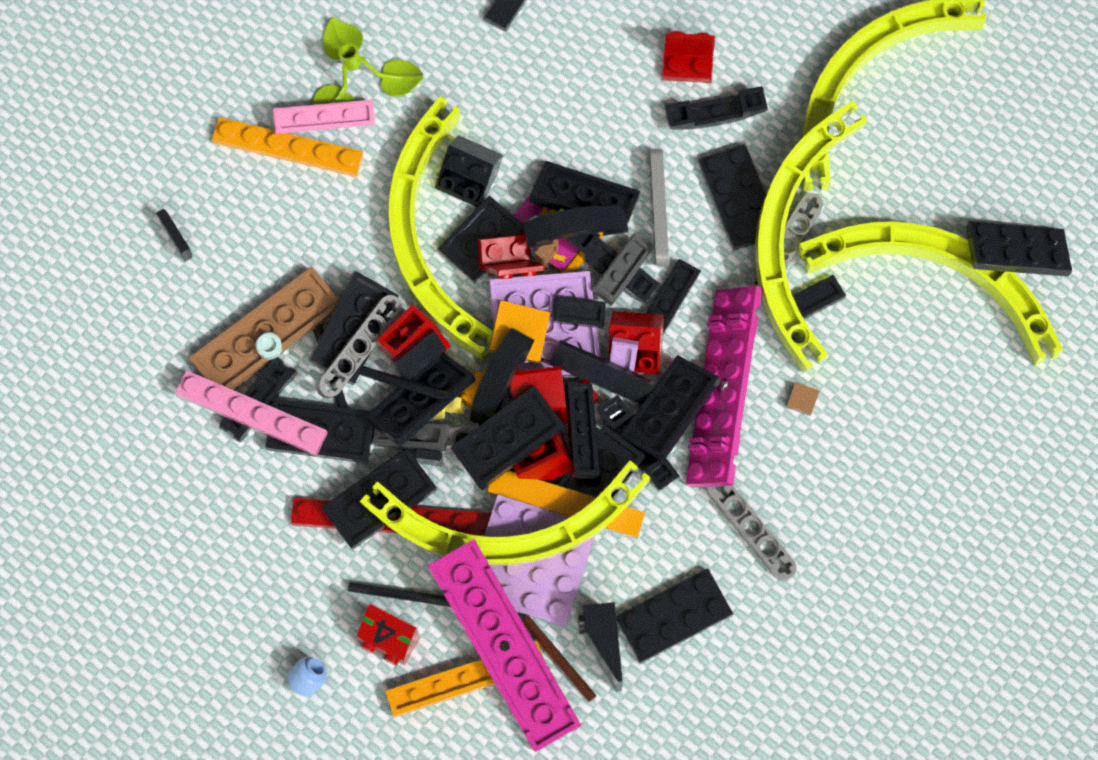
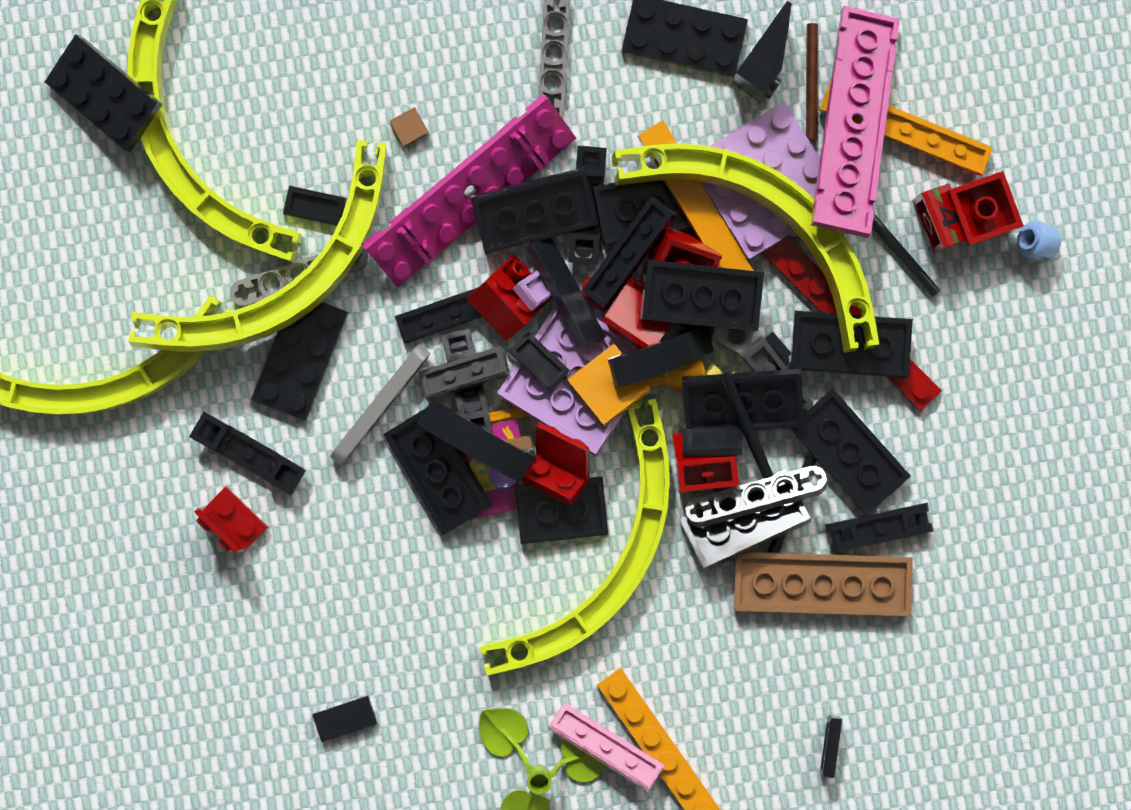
camera: 140 degrees left, 15 degrees up
(251, 413) = (899, 516): bright pink plate -> none
(268, 346) = (833, 565): light aqua tile -> none
(364, 662) = (985, 208): none -> red slope
(468, 171) = (519, 584): black slope -> none

